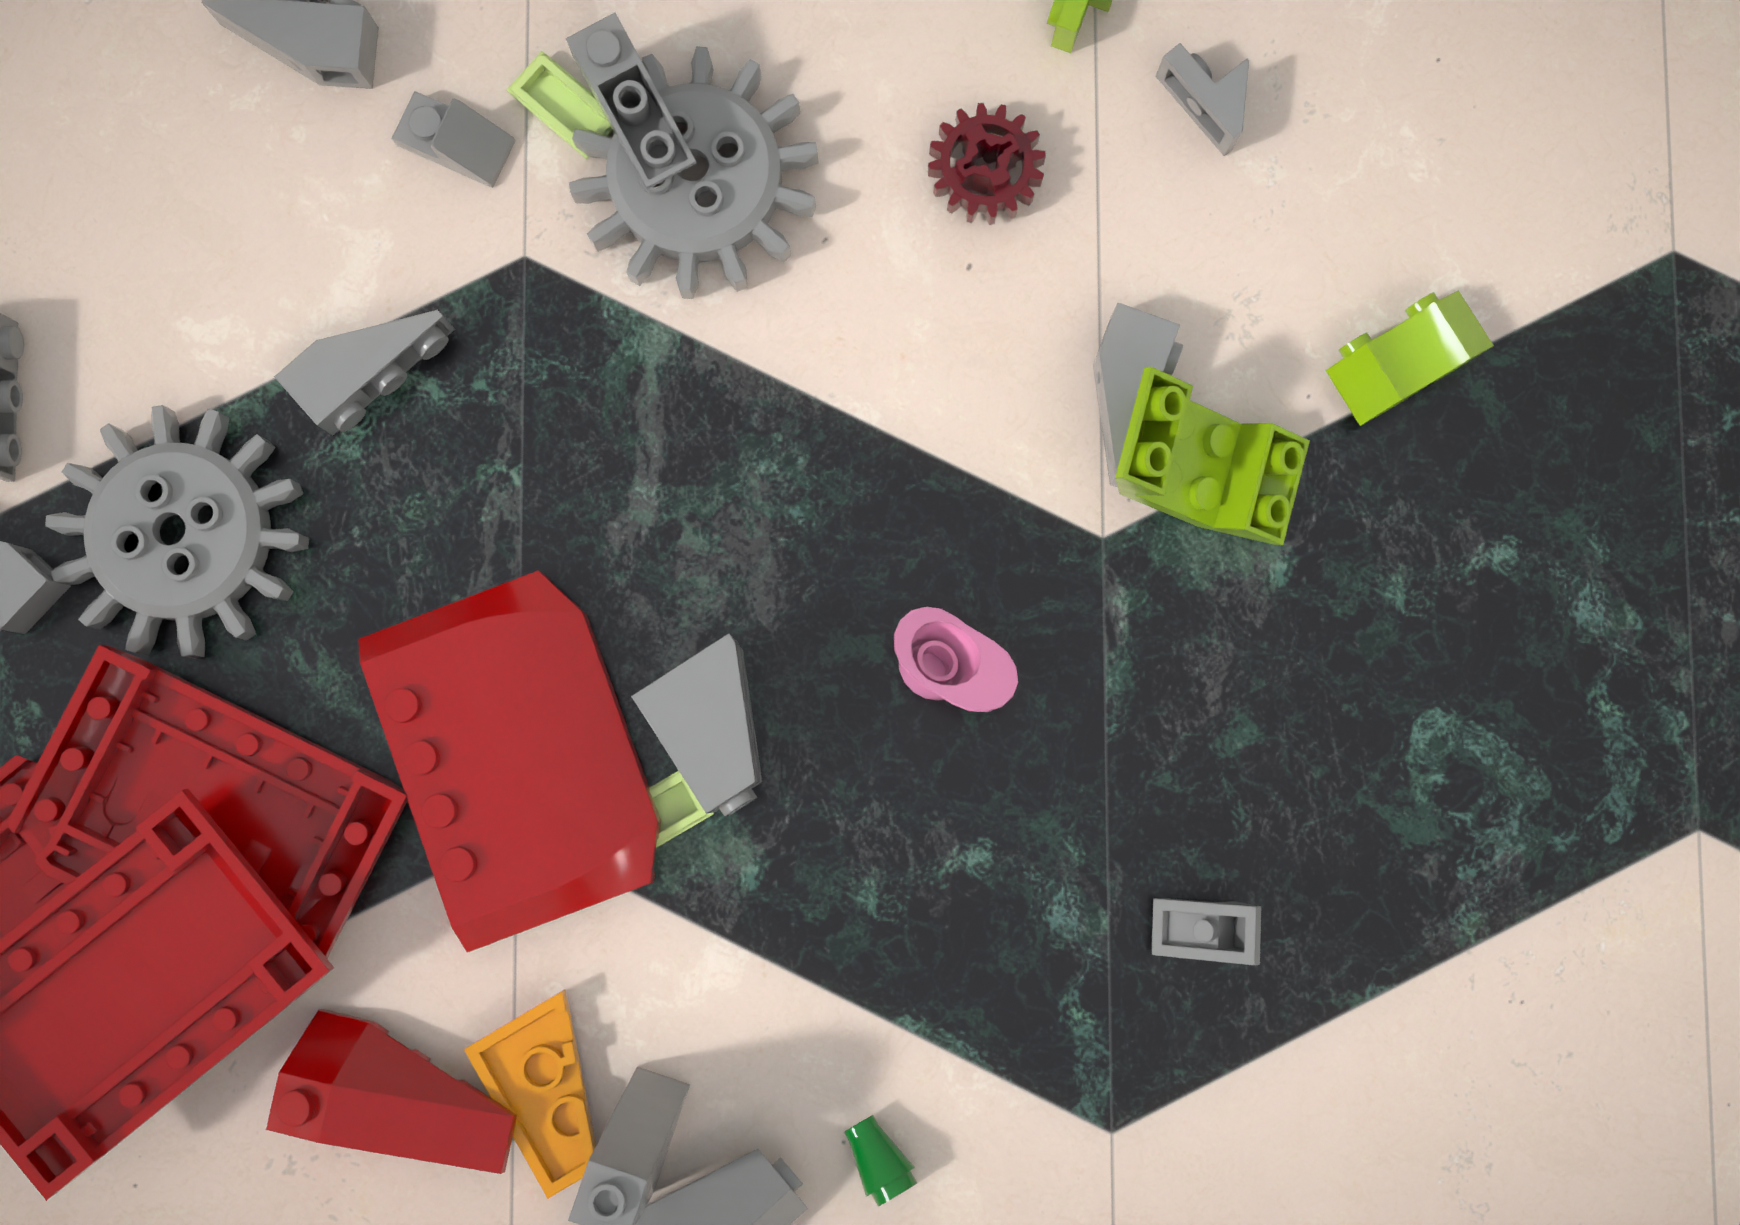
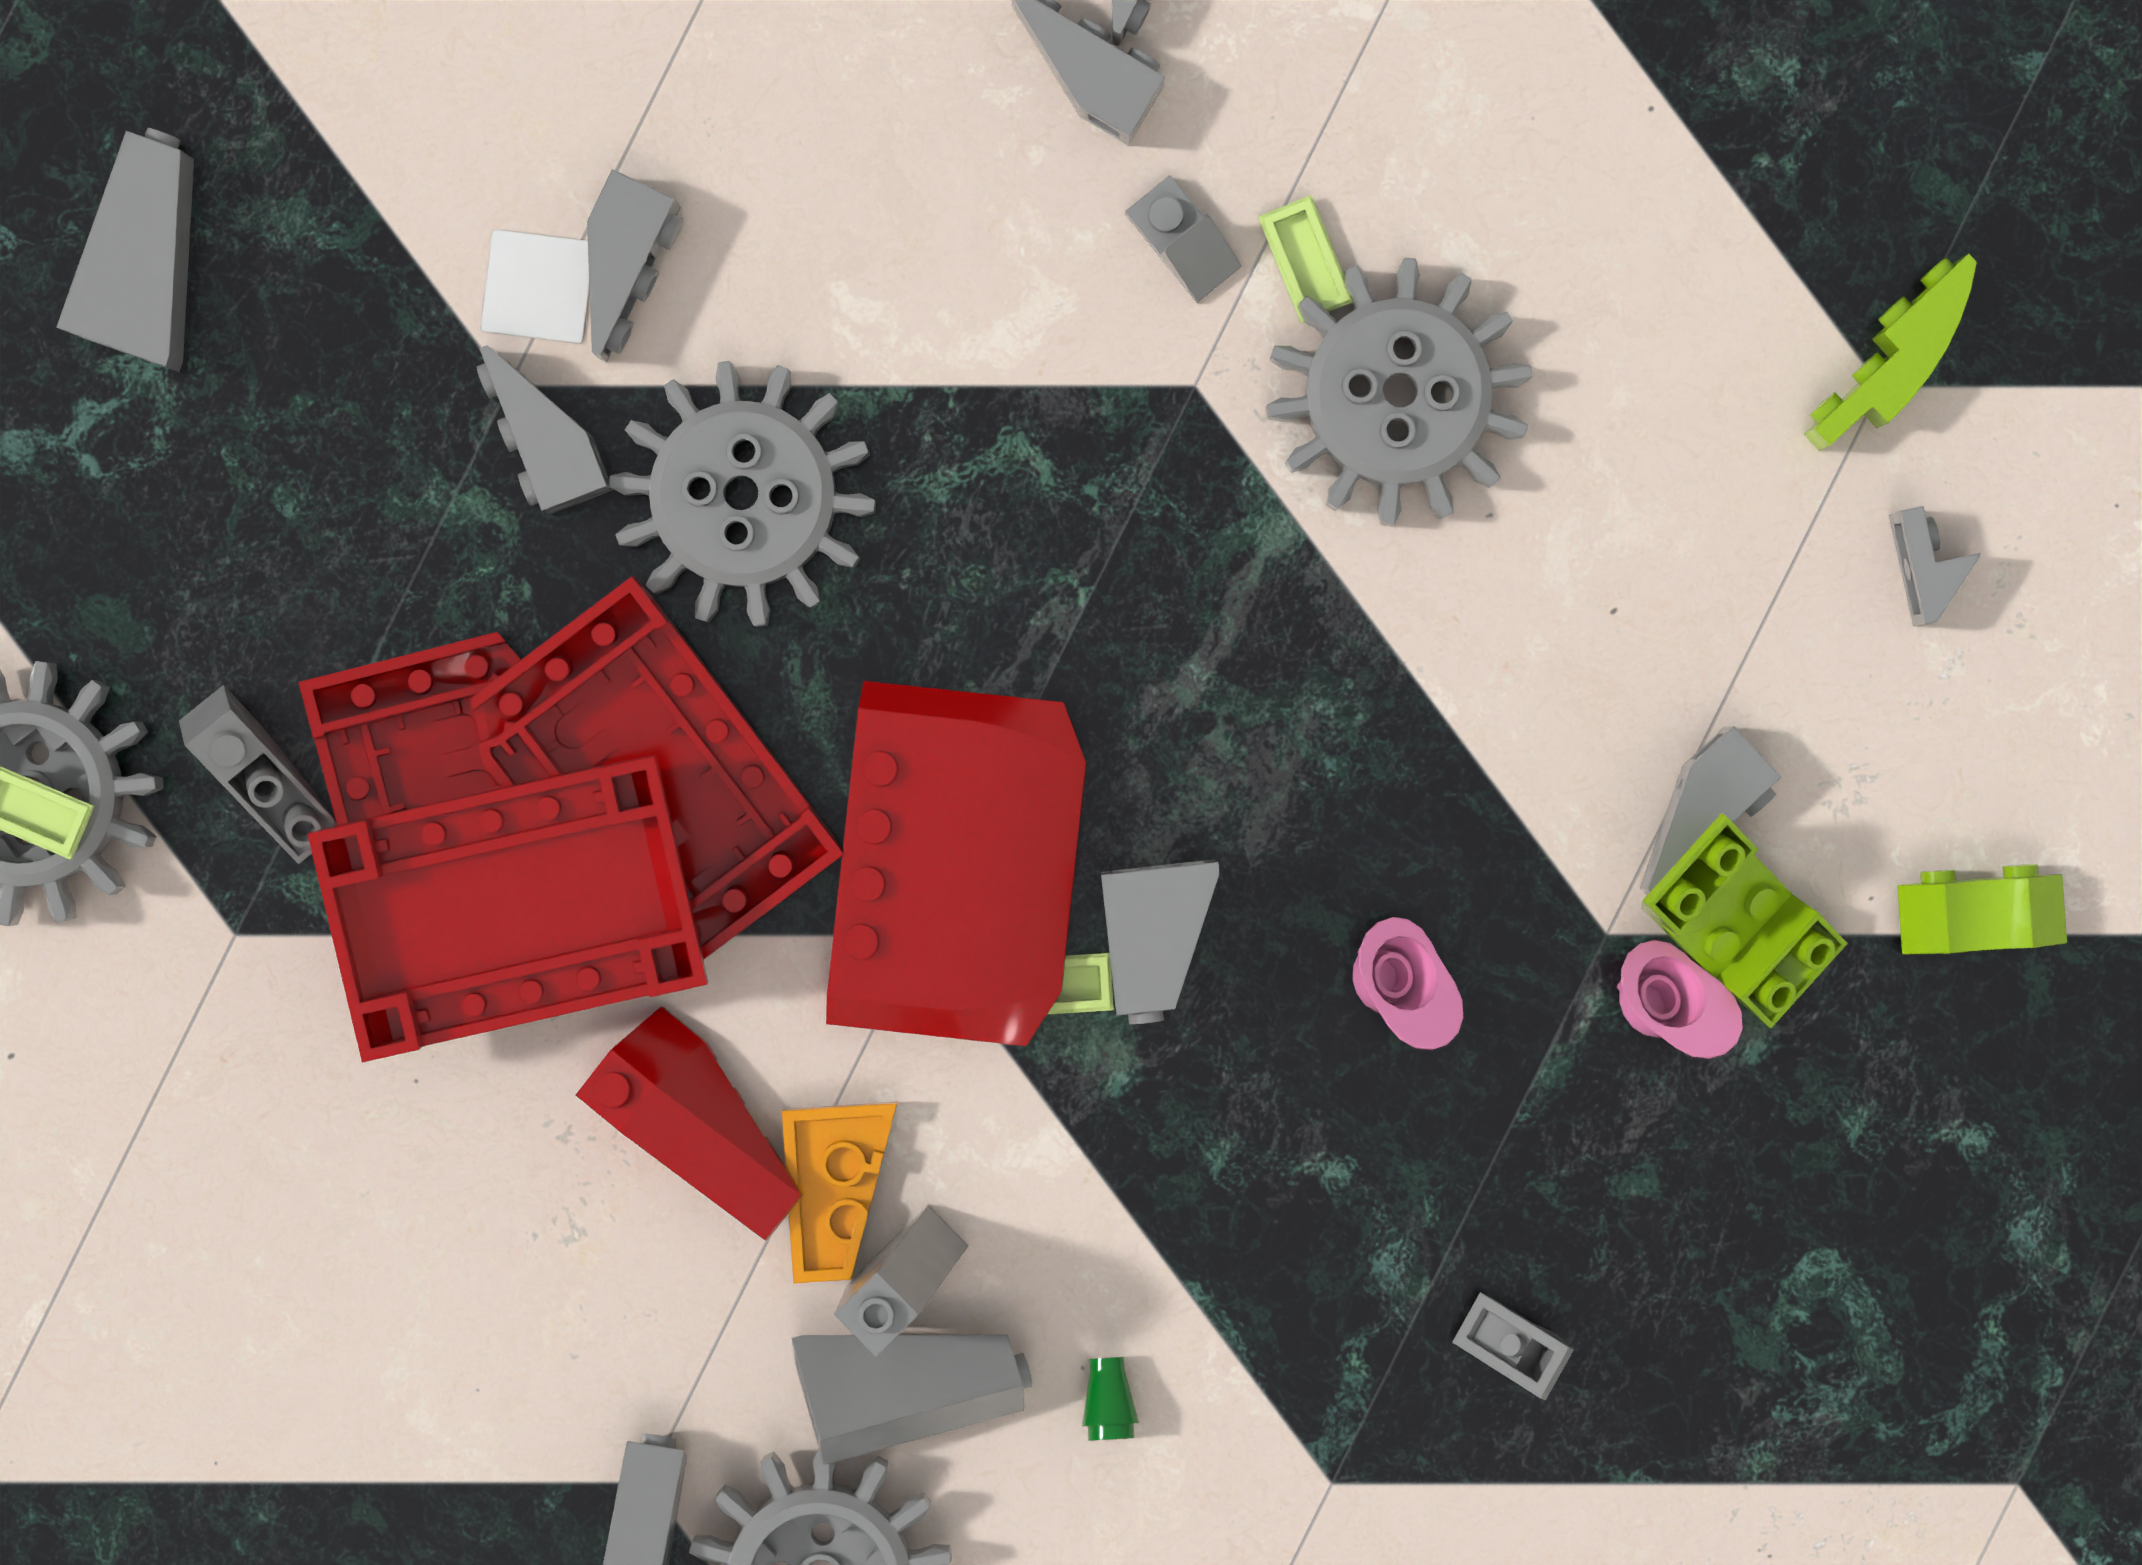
camera: 20 degrees right, 5 degrees up
(350, 370) = (978, 420): light grey slope -> none
(630, 100) = (1373, 311): light grey slope -> none
(979, 143) = (1680, 497): dark red gear -> none
(1191, 559) = (1678, 1000): none -> bright pink piece

